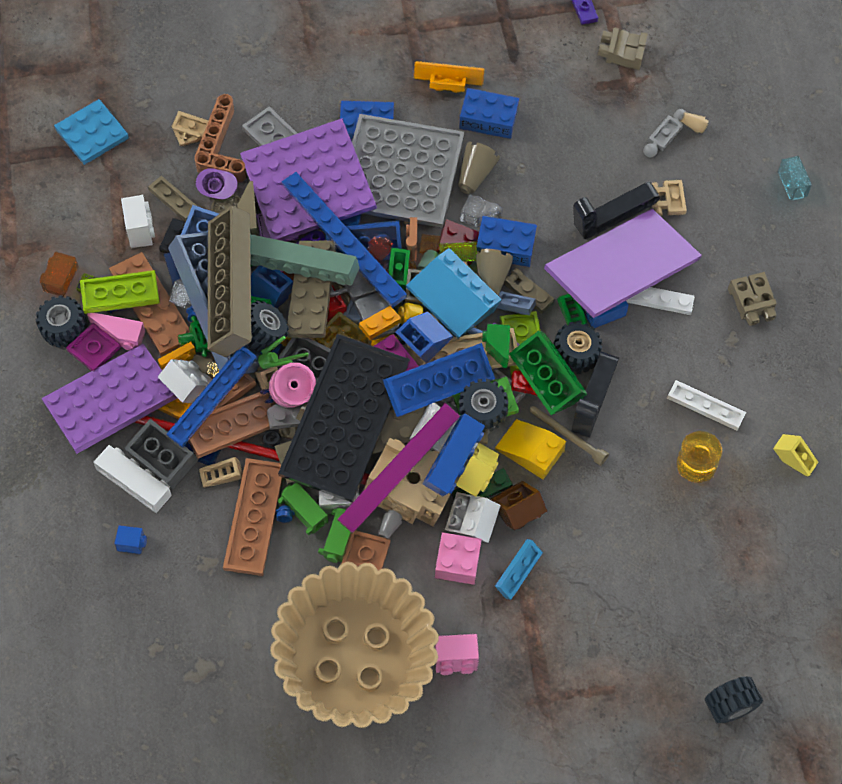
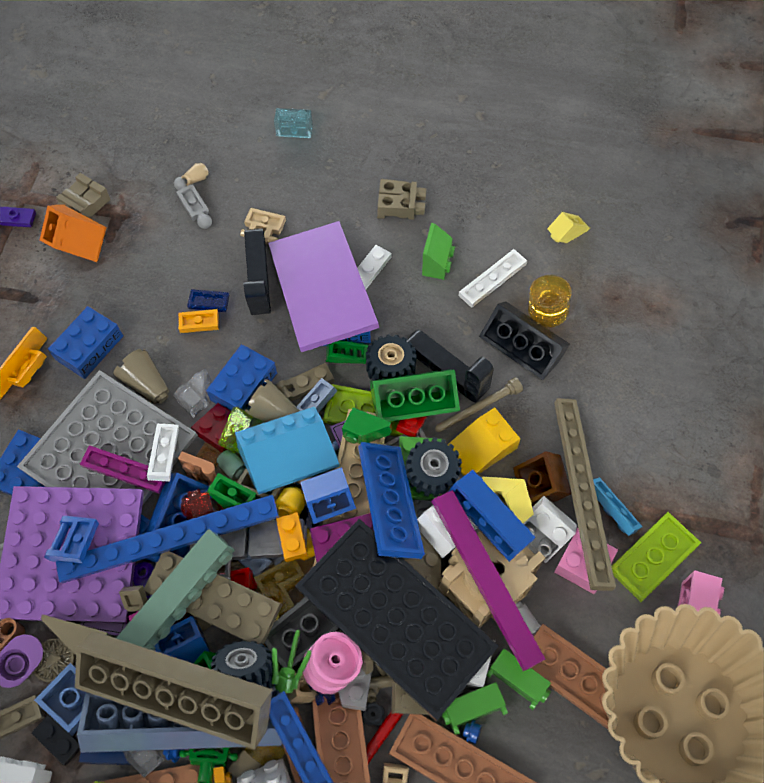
camera: 65 degrees left, 0 degrees up
(291, 235) = (133, 597): none -> dark tan plate
(314, 174) = (77, 540): none -> blue plate
(387, 186) = (119, 468): none -> magenta plate
(411, 205) = (163, 452): none -> white plate
(488, 617) = (654, 556): none -> lime tile
(516, 533) = (584, 497): none -> dark tan plate
(548, 186) = (198, 321): none -> light orange plate
(571, 185) = (208, 300): none -> clear blue plate
(584, 54) = (72, 232): none -> orange slope
(652, 450) = (524, 340): none -> black slope
(706, 346) = (437, 253): none -> bright green slope

